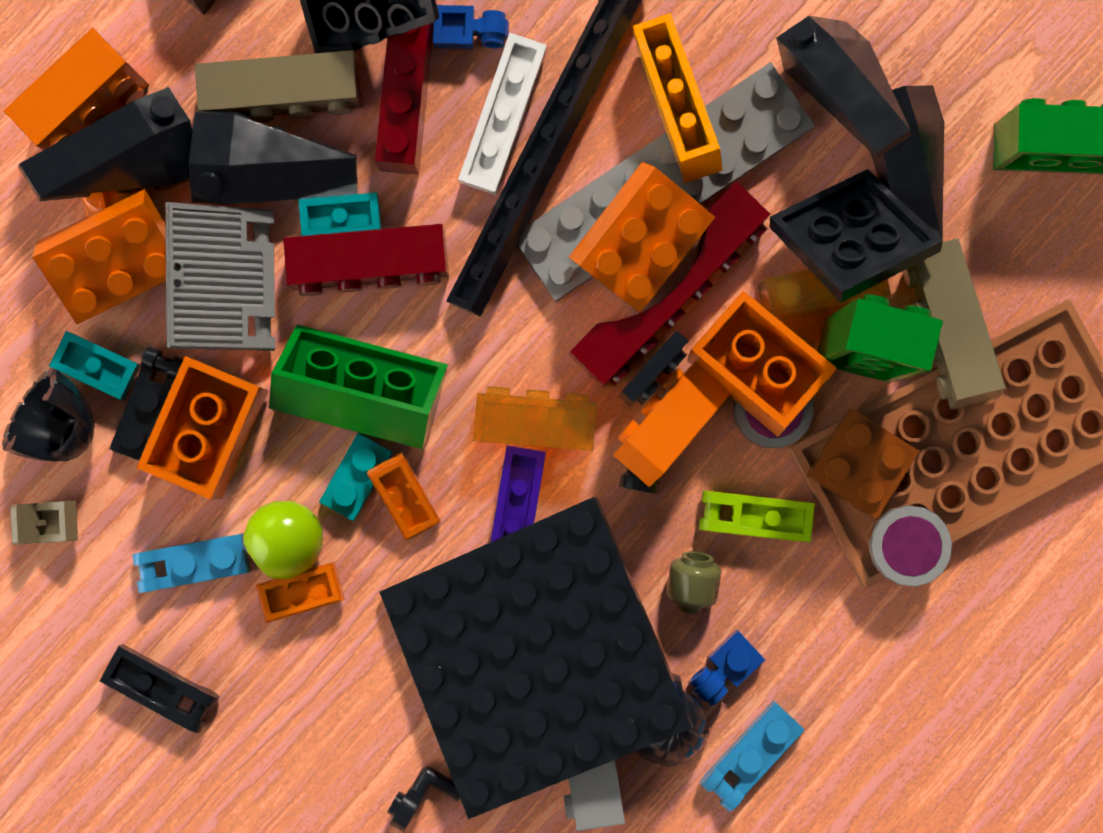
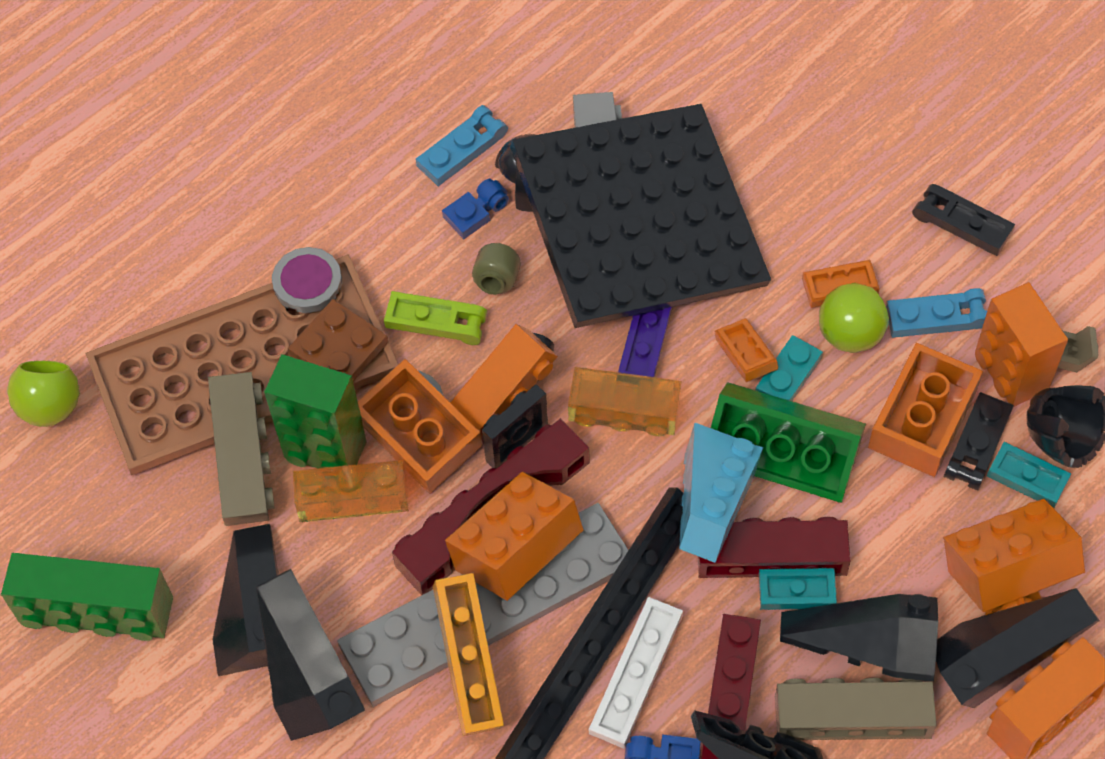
camera: 175 degrees left, 25 degrees down
(91, 500) = (1020, 344): none -> orange brick
(219, 277) = (910, 530): light grey window -> none
(406, 805) = (753, 123): black plate -> none
(426, 309) = (715, 486): none -> medium azure wedge
(855, 235) = (318, 522): black plate -> none

